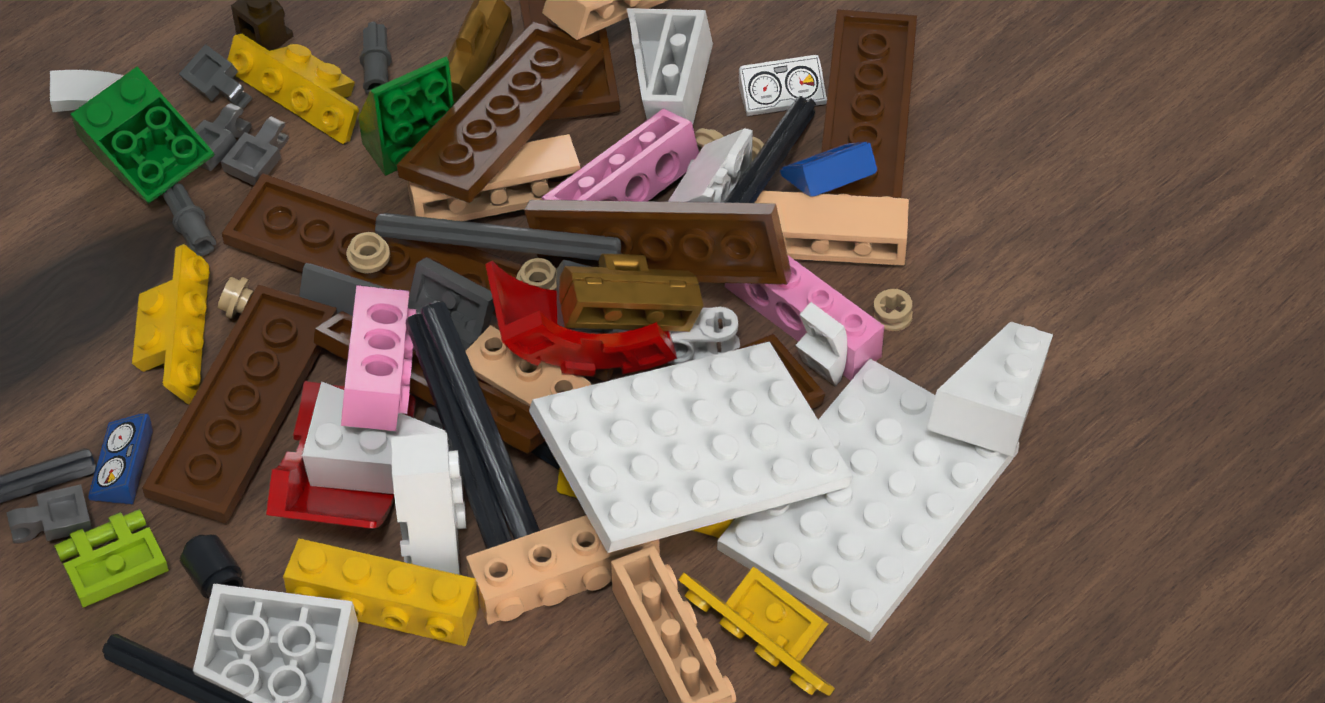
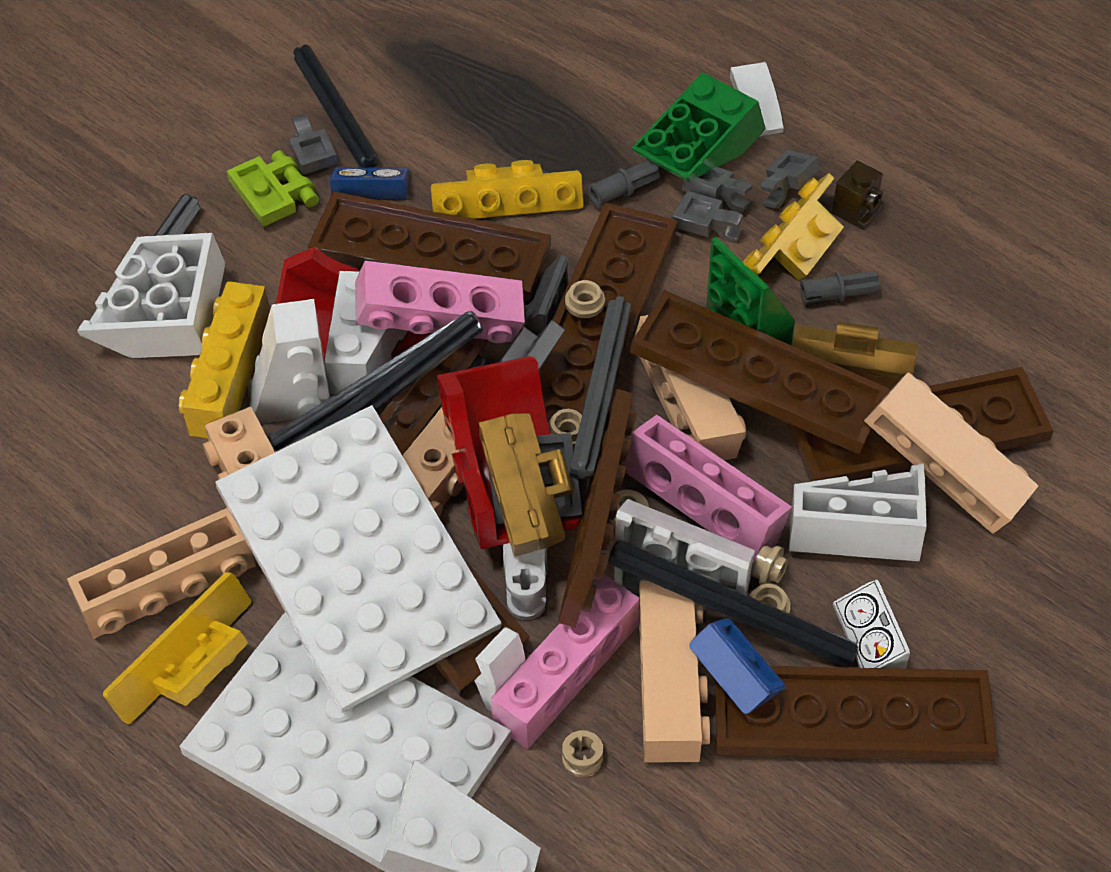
camera: 85 degrees right, 0 degrees up
(210, 563) = (257, 248): black brick -> none
(235, 296) = (538, 220): tan plate -> none

